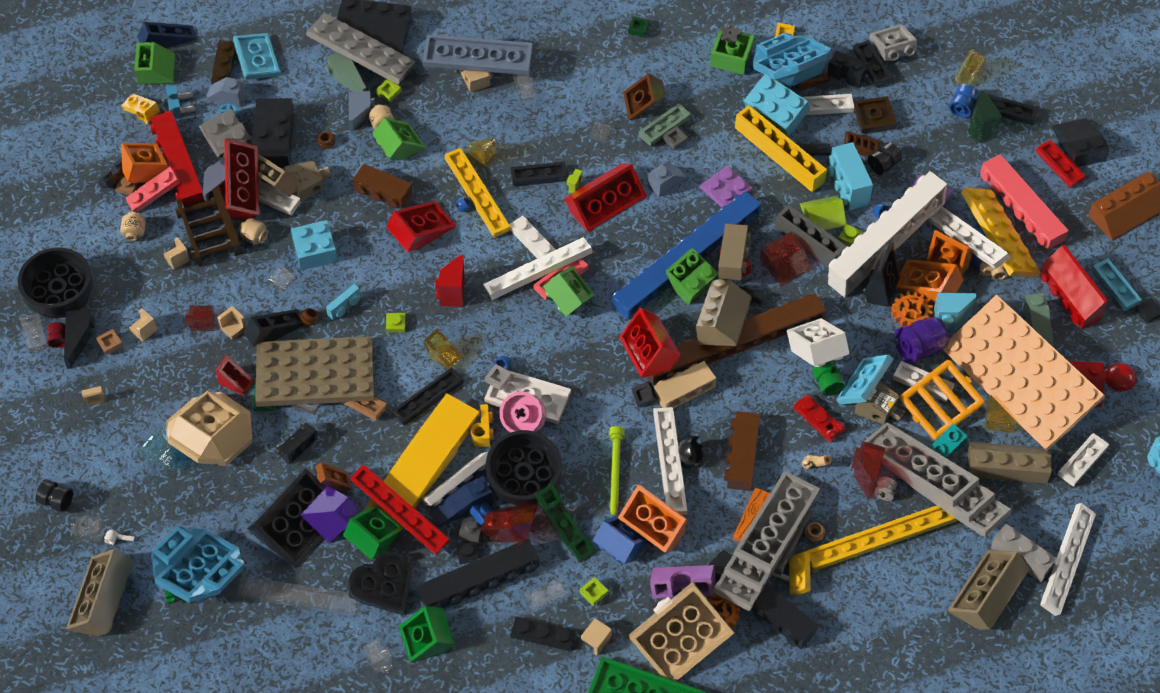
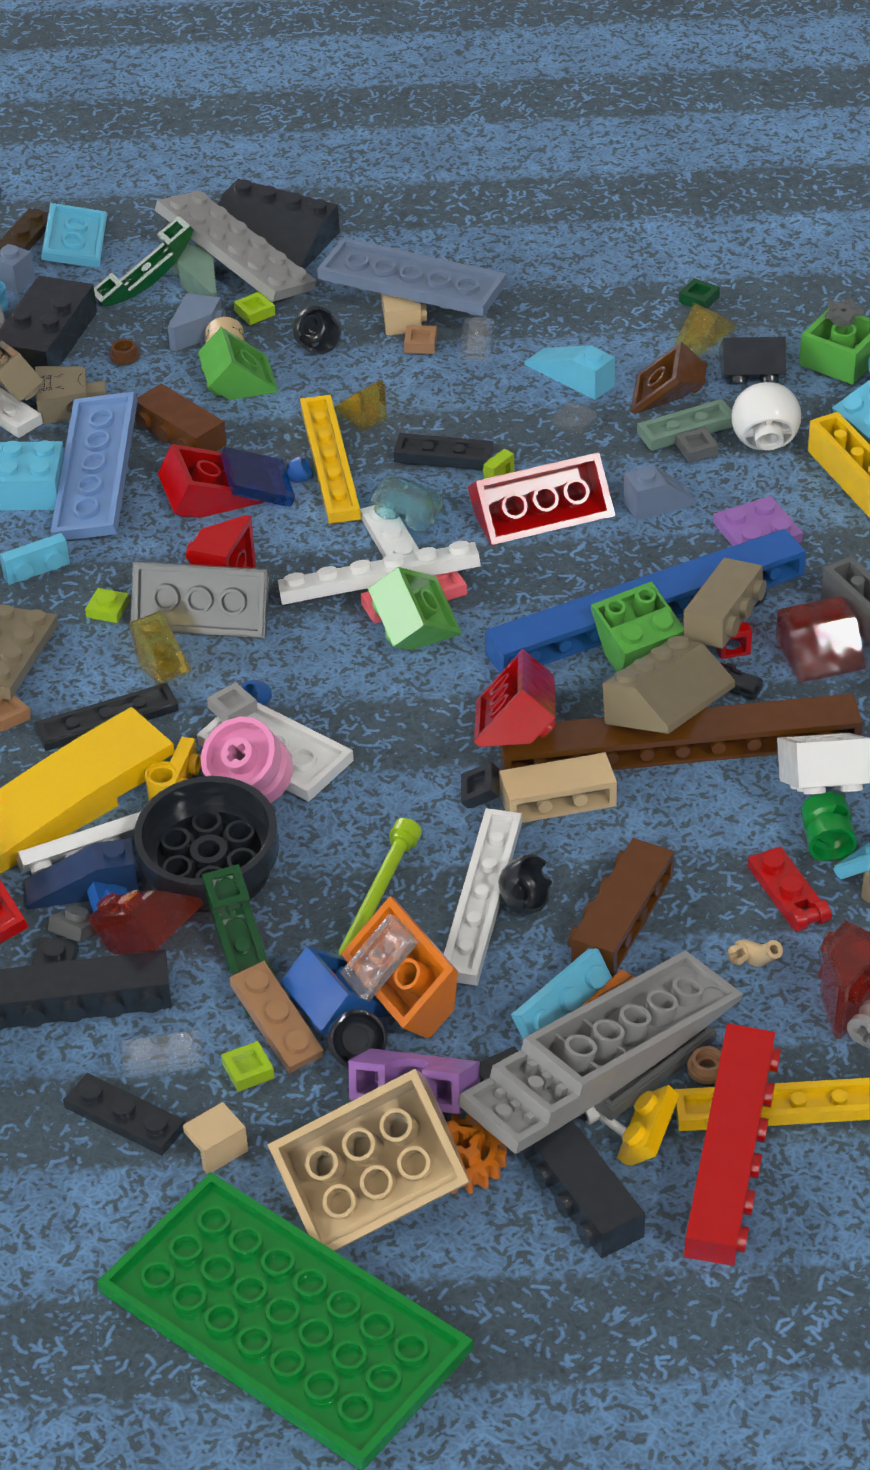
camera: 20 degrees right, 15 degrees down
(316, 74) = (150, 269): none -> dark green slope
(349, 230) = (94, 466): none -> medium blue plate
(436, 98) = (316, 325): none -> black hair
(444, 216) = (257, 477): none -> clear blue tile
(450, 311) = (202, 597): none -> tile
(494, 94) = (420, 339): none -> medium nougat plate
(535, 215) = (410, 498): none -> clear light blue slope
(588, 96) = (577, 367): none -> medium azure slope
(597, 560) = (276, 1017): none -> medium nougat plate
(642, 563) = (354, 1034): none -> black hair
(643, 519) = (379, 957): none -> clear plate
(649, 53) = (703, 329): none -> clear yellow slope
(685, 70) = (753, 359): none -> black slope
(709, 114) = (766, 416): none -> white wheel
(733, 512) = (563, 993): none -> medium azure plate
(844, 576) = (730, 1144): none -> red brick

